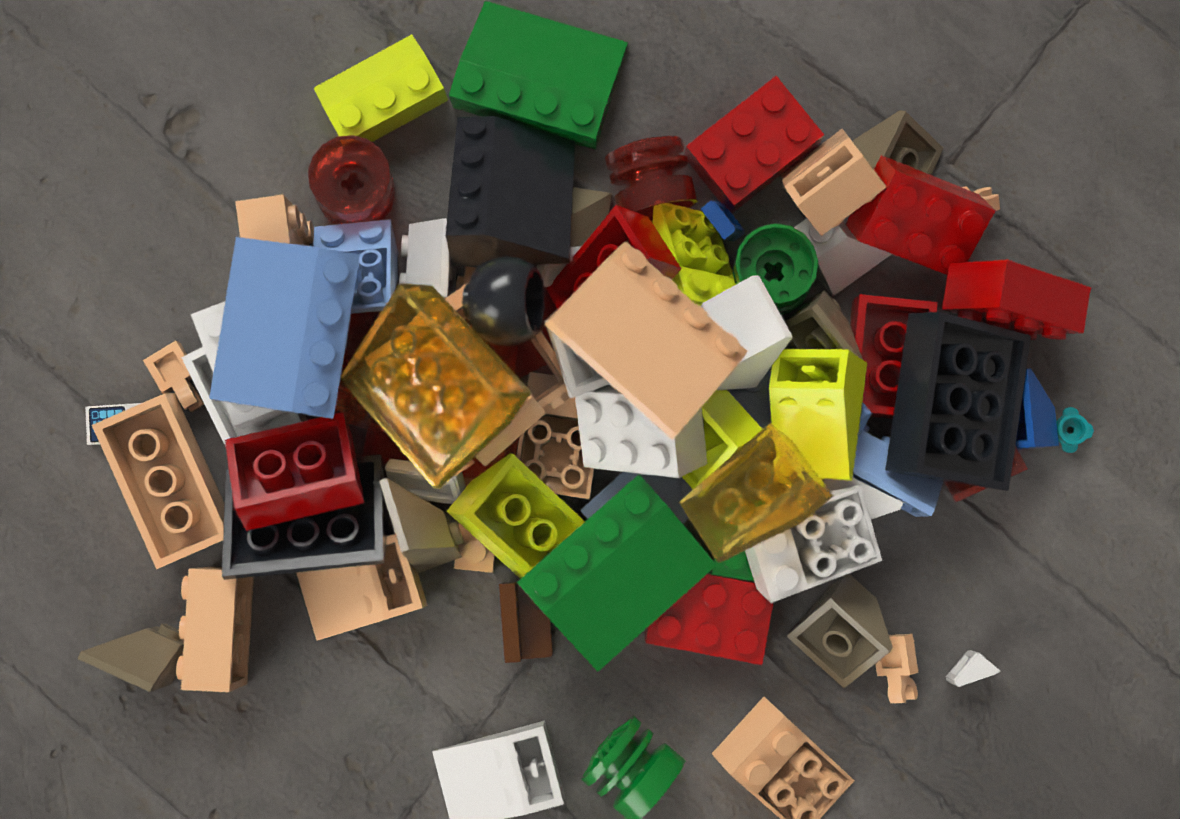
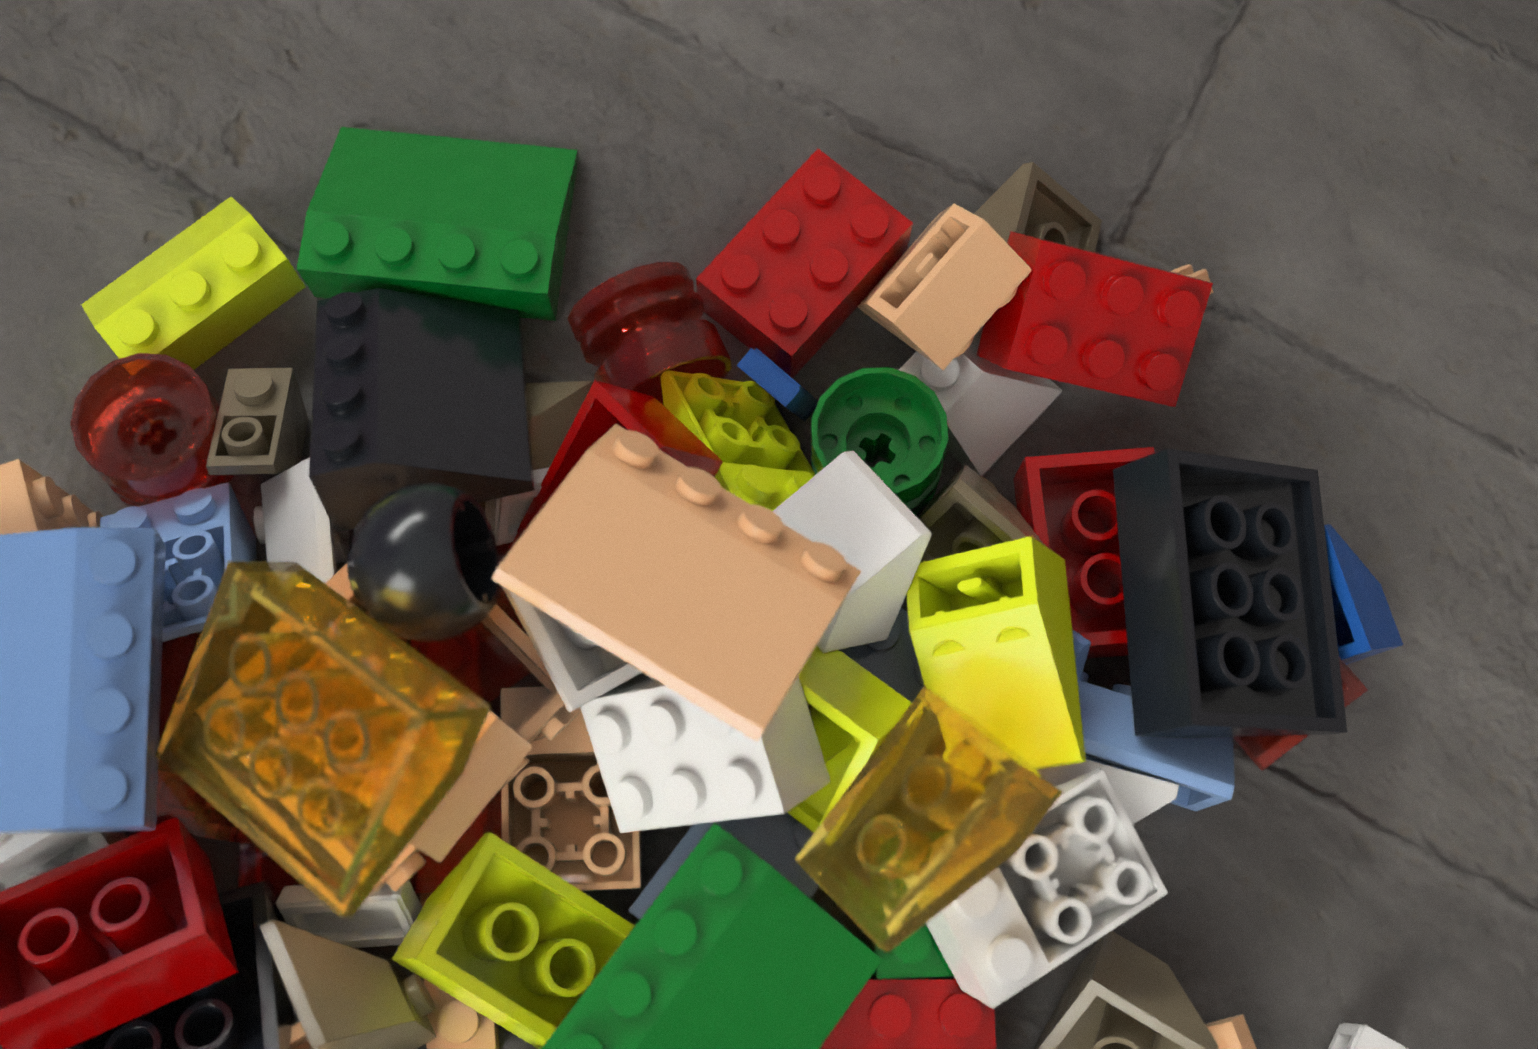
camera: 20 degrees left, 10 degrees down
(412, 187) = (258, 423): none -> dark tan slope
(1017, 298) = (1282, 410): red brick -> none
(1081, 429) = (1427, 608): teal plate -> none

